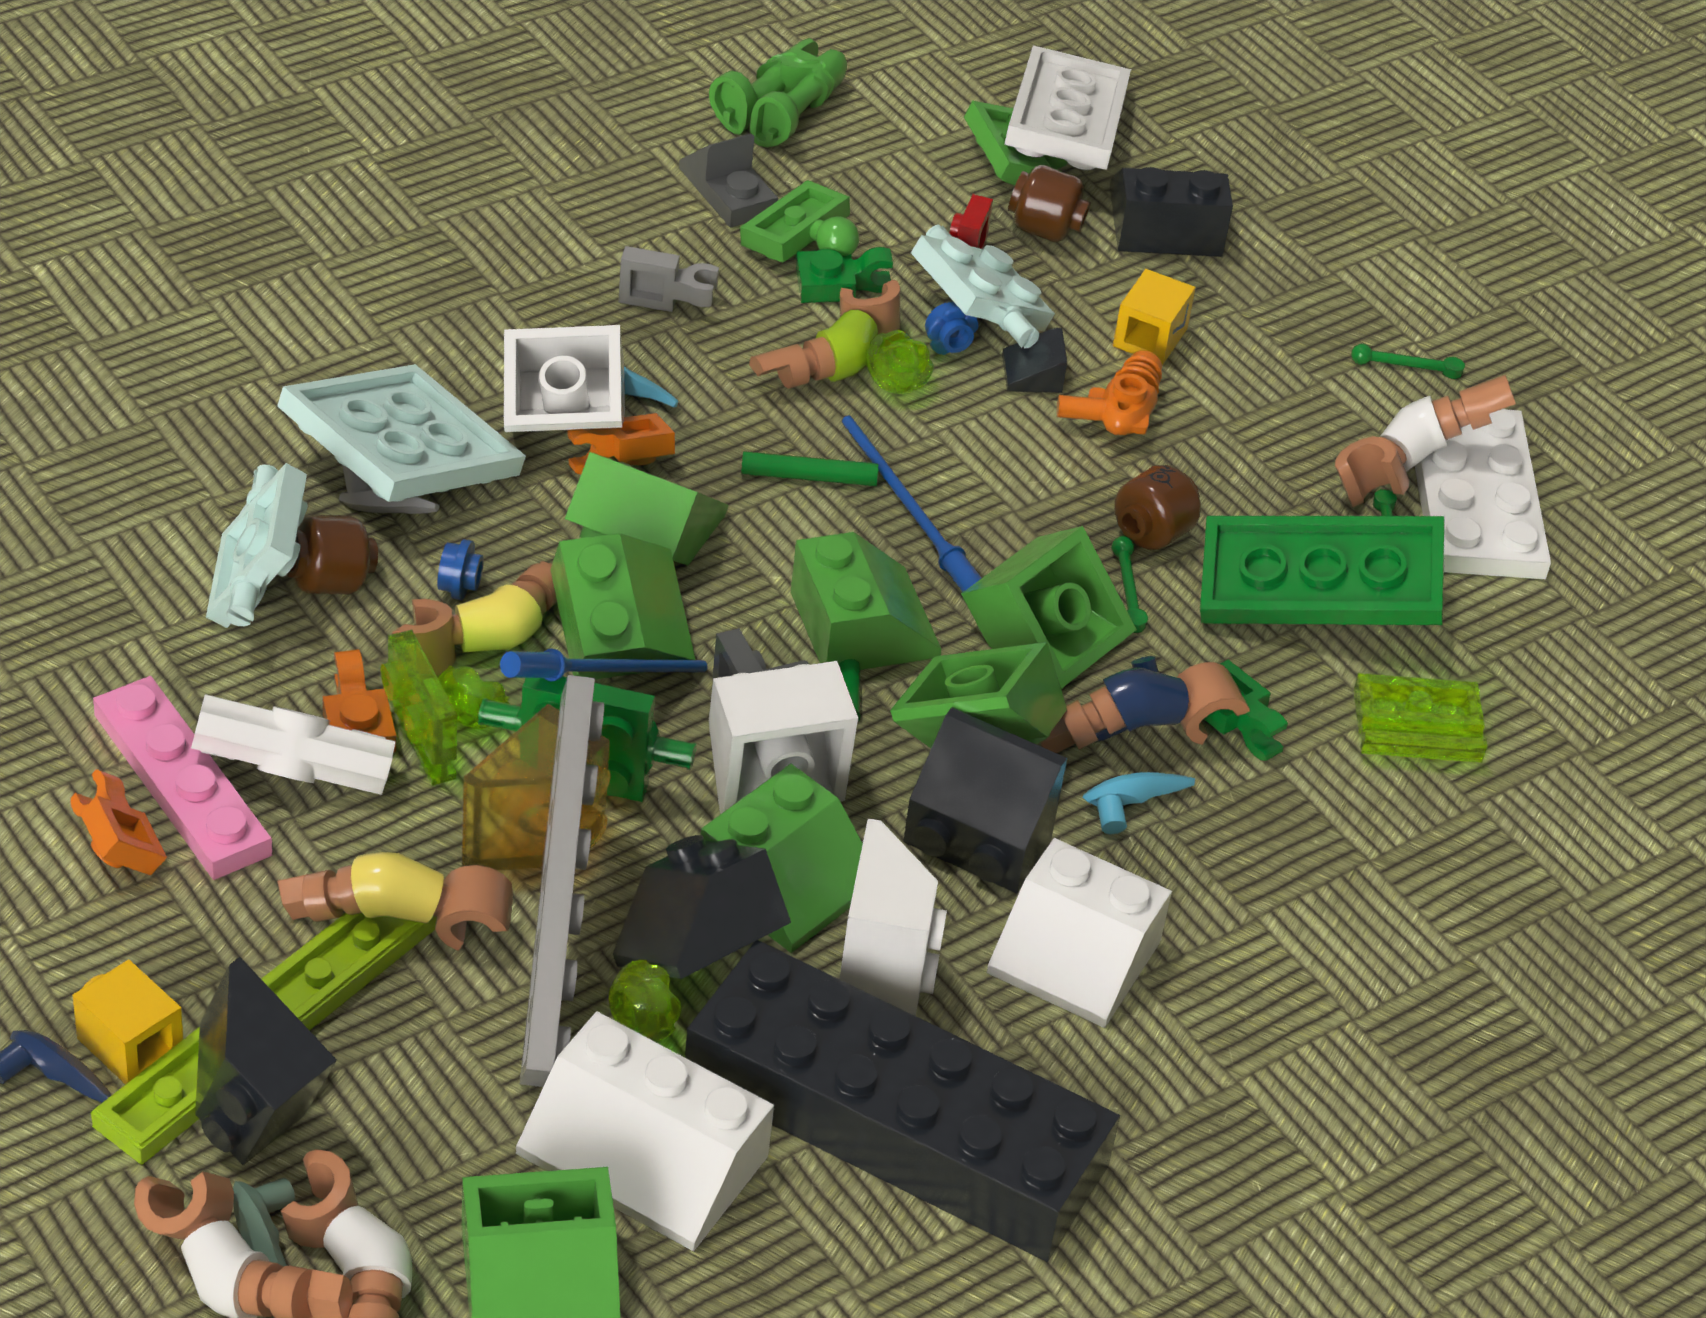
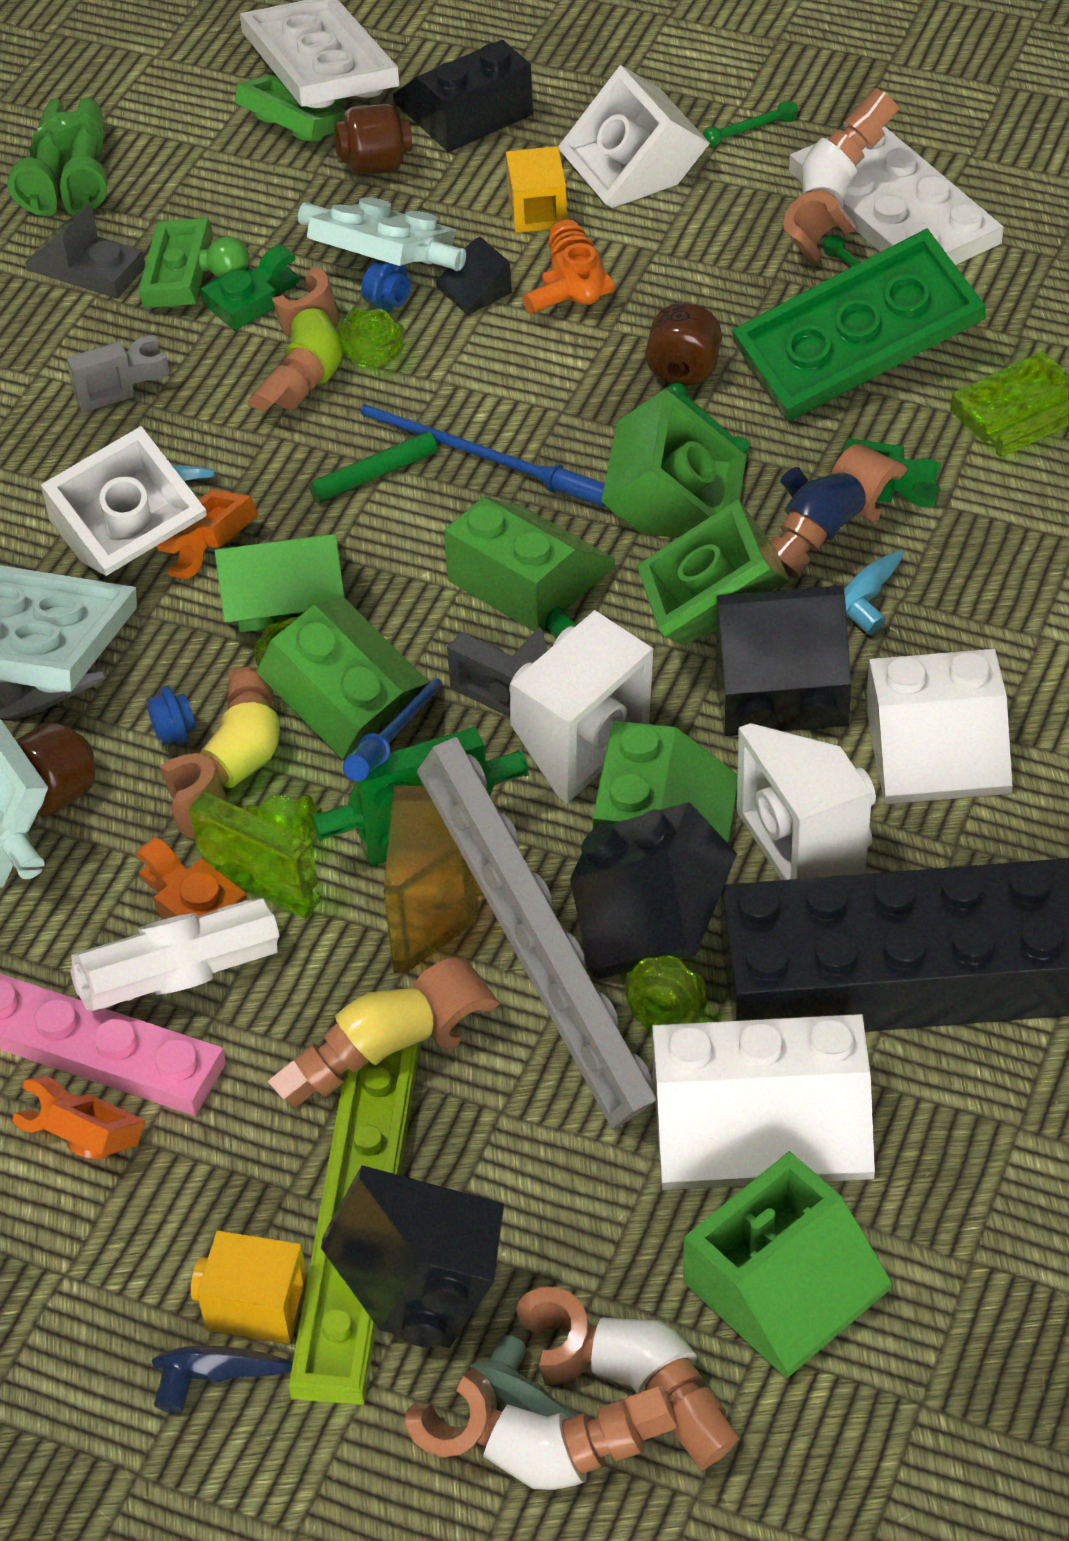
camera: 25 degrees left, 5 degrees up
(974, 224) = (328, 185): red plate -> none
(1279, 318) = (632, 141): none -> white slope

